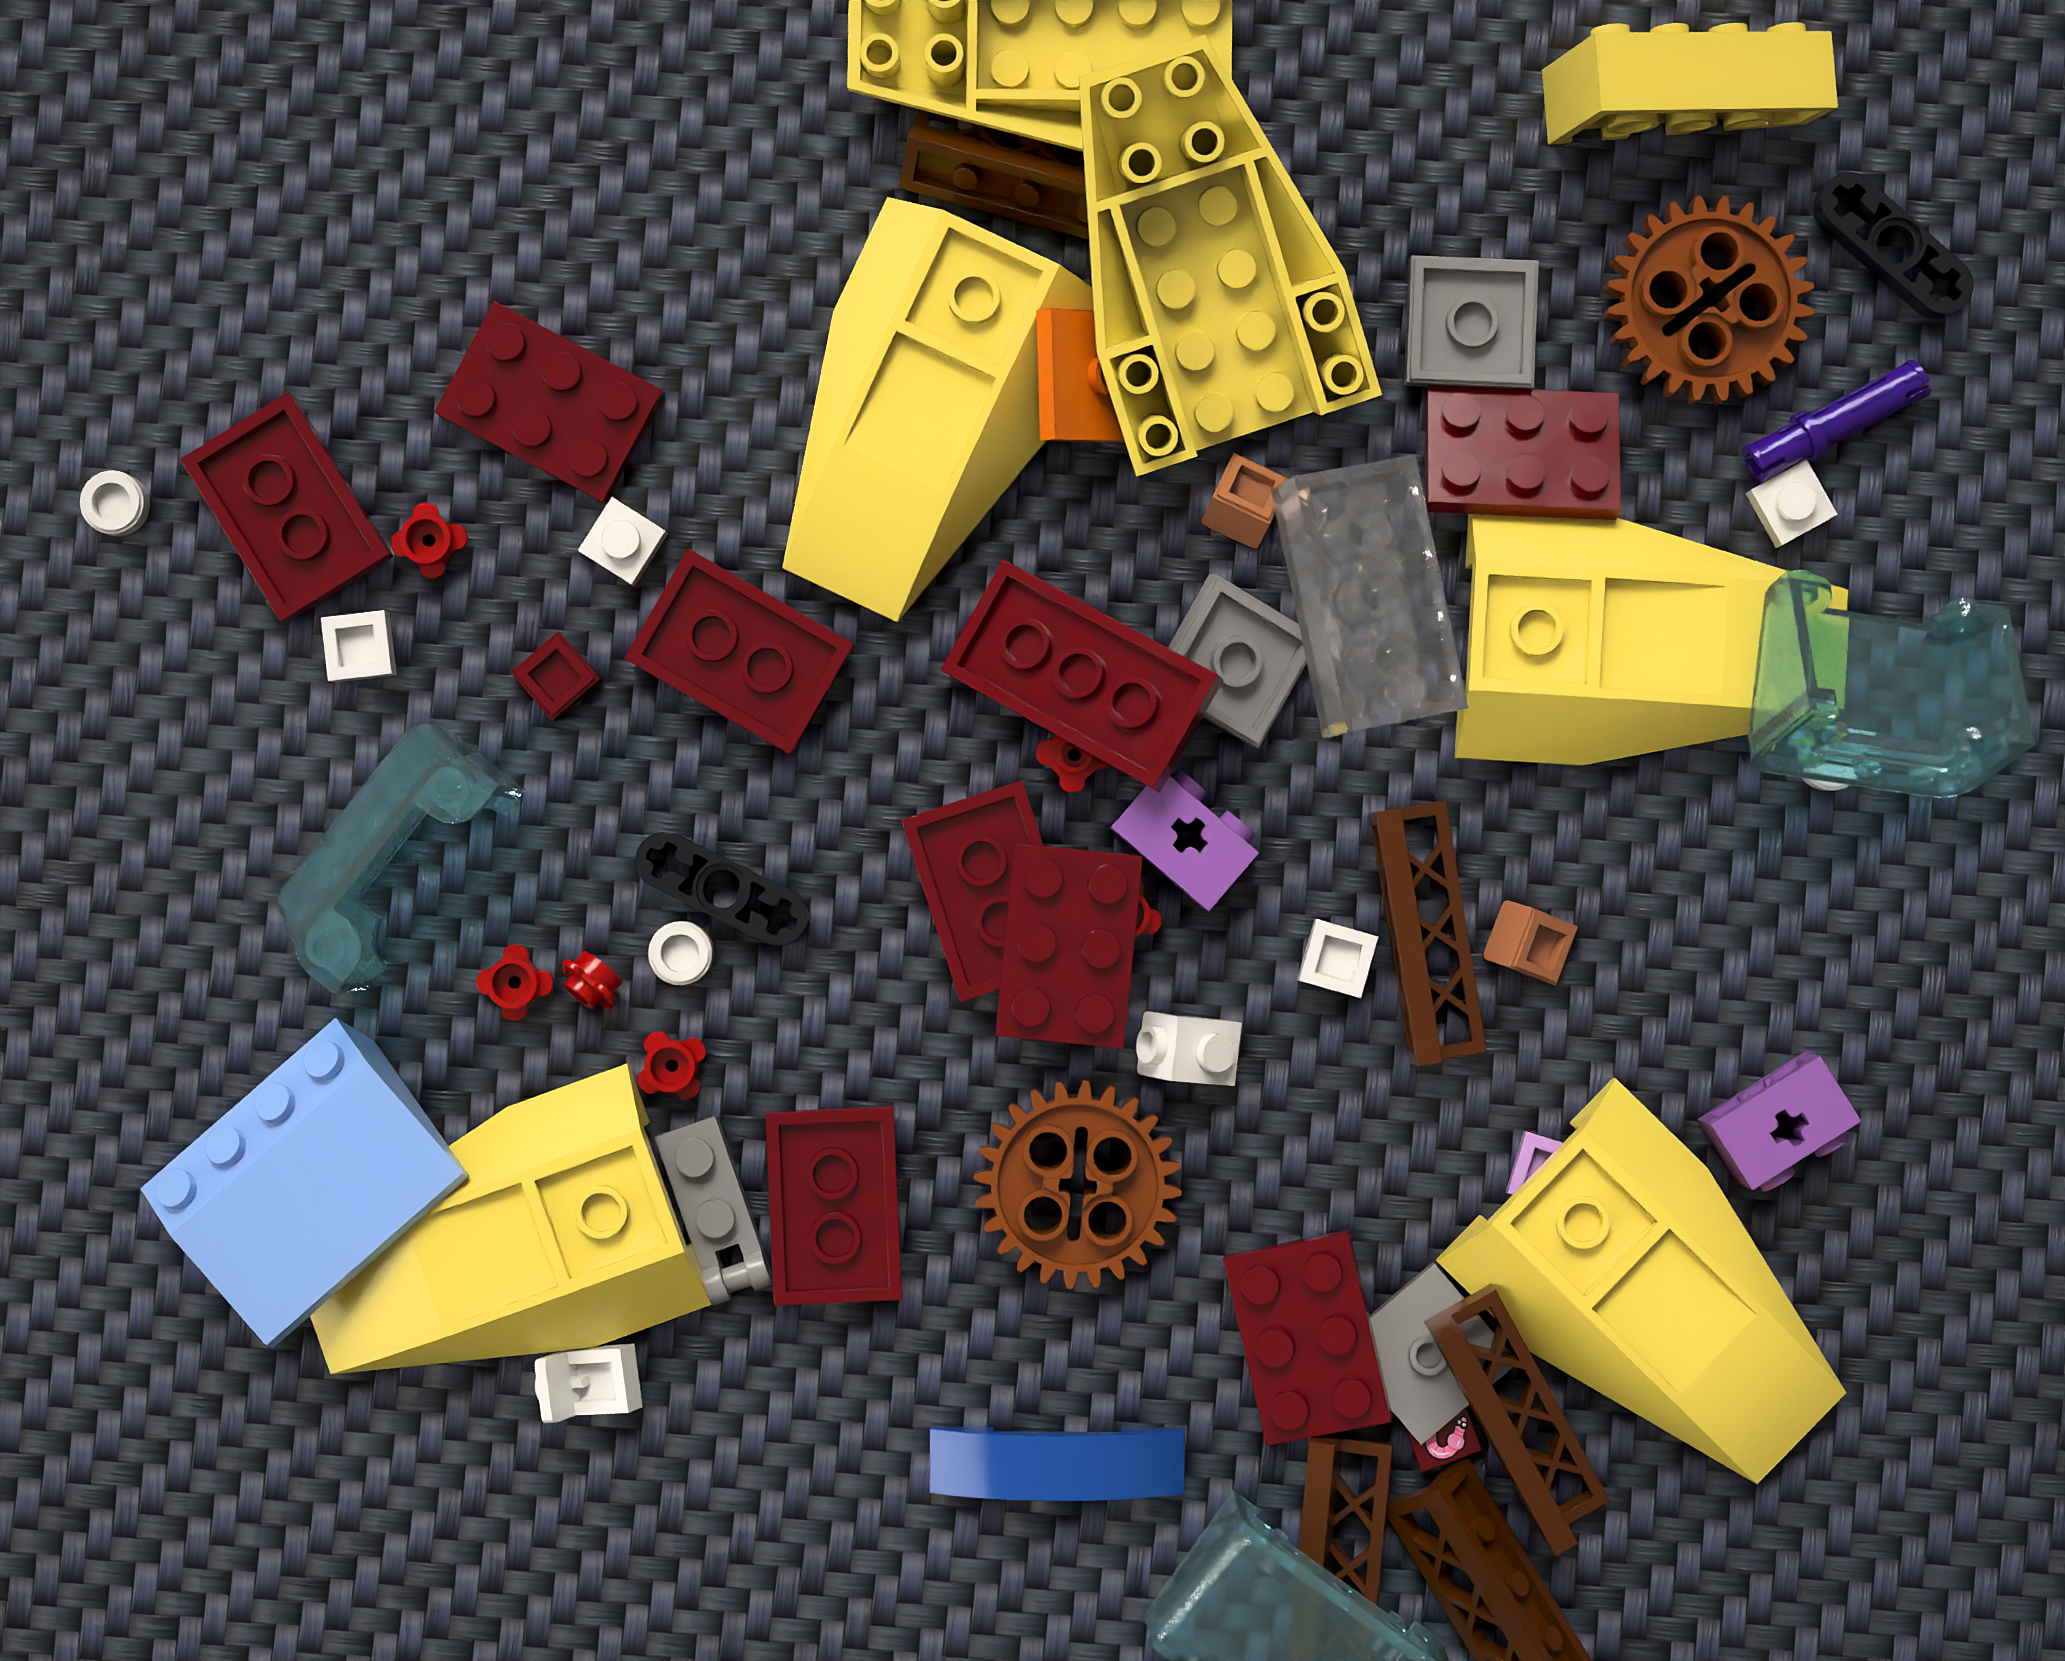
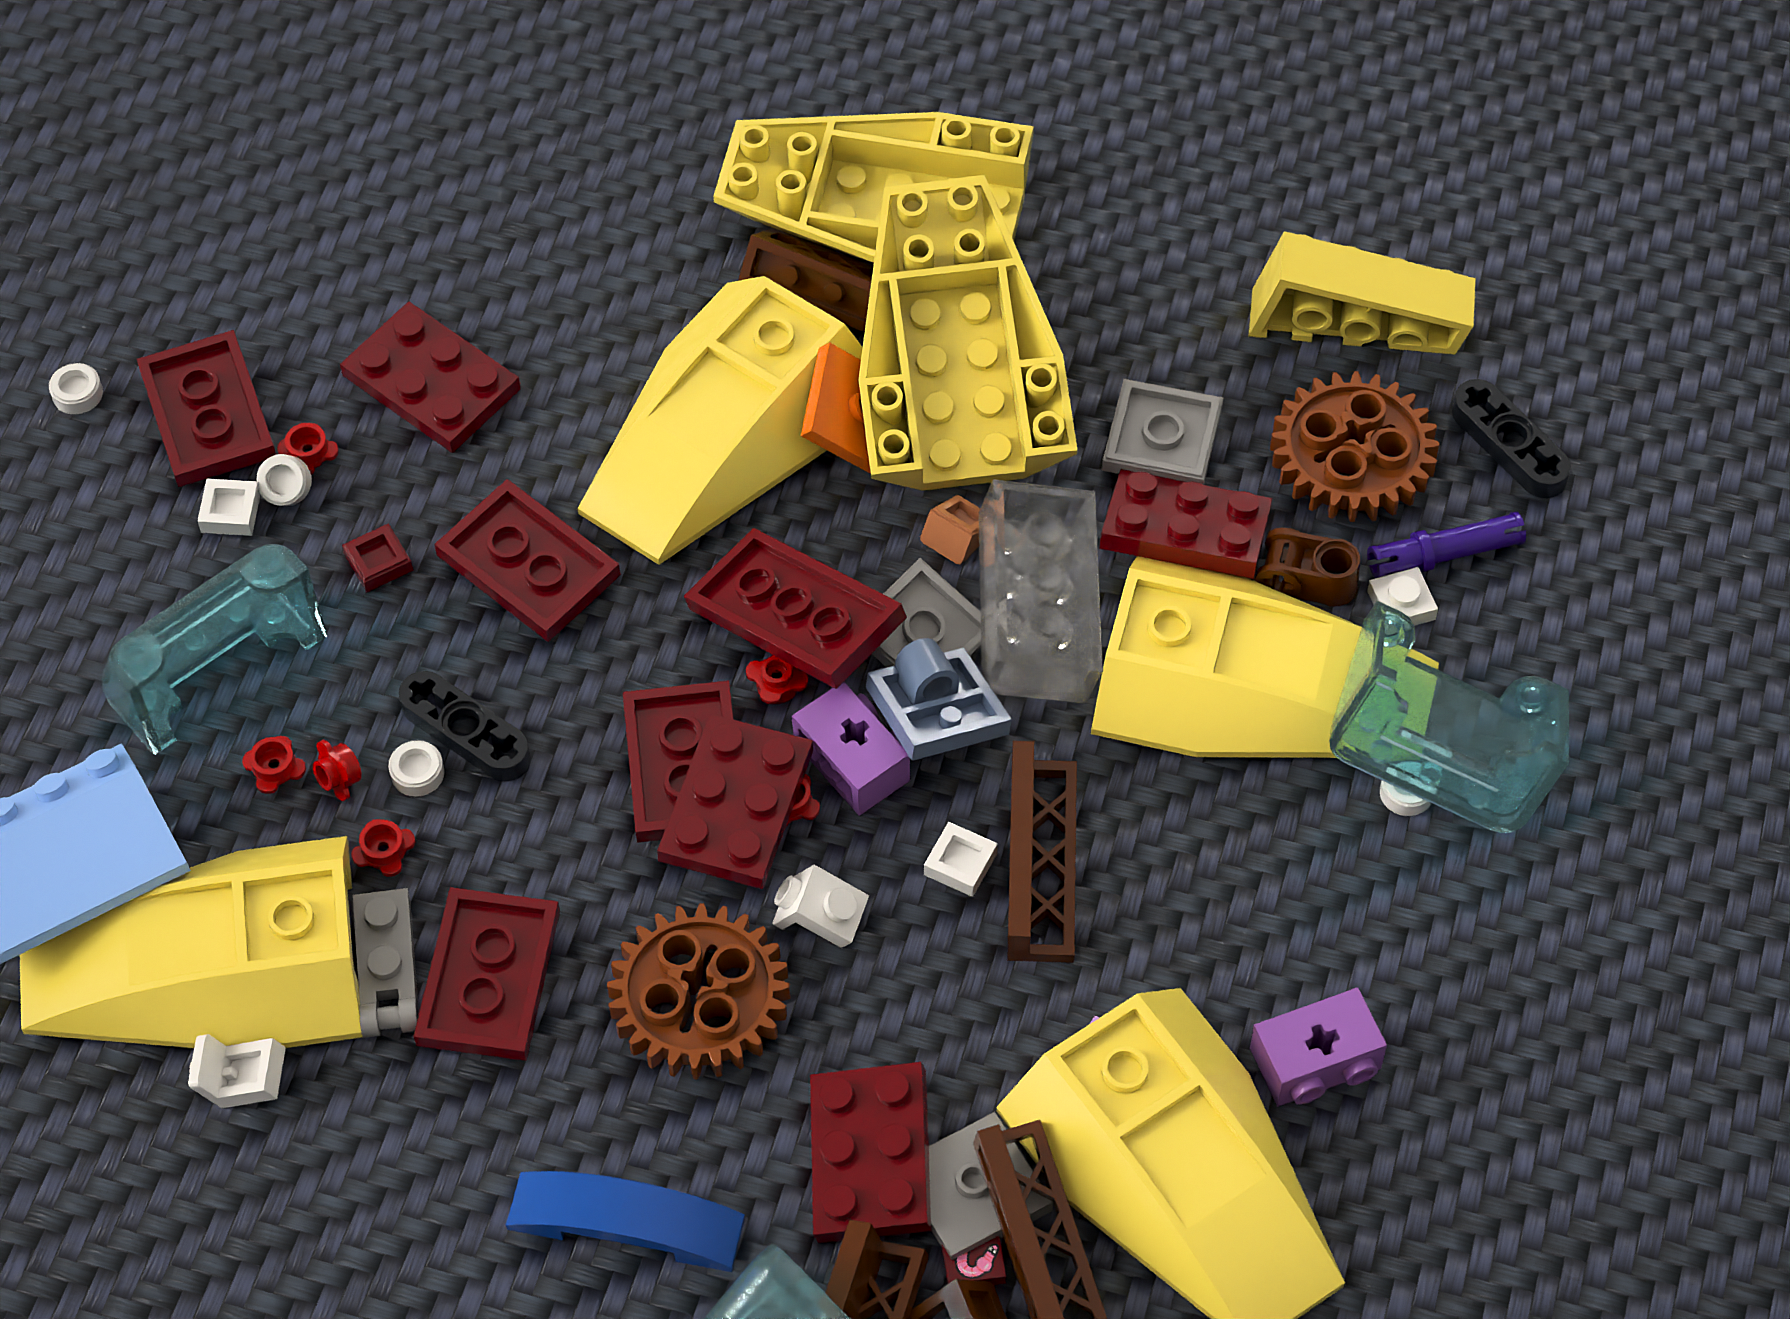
camera: 10 degrees right, 30 degrees down
(414, 595) = (284, 480): none -> white tile
(623, 541) = (458, 475): white plate -> none
(1278, 777) = (936, 700): none -> sand blue plate
(1530, 942) = (1130, 881): nougat slope -> none
(1672, 486) = (1308, 566): none -> reddish brown piece

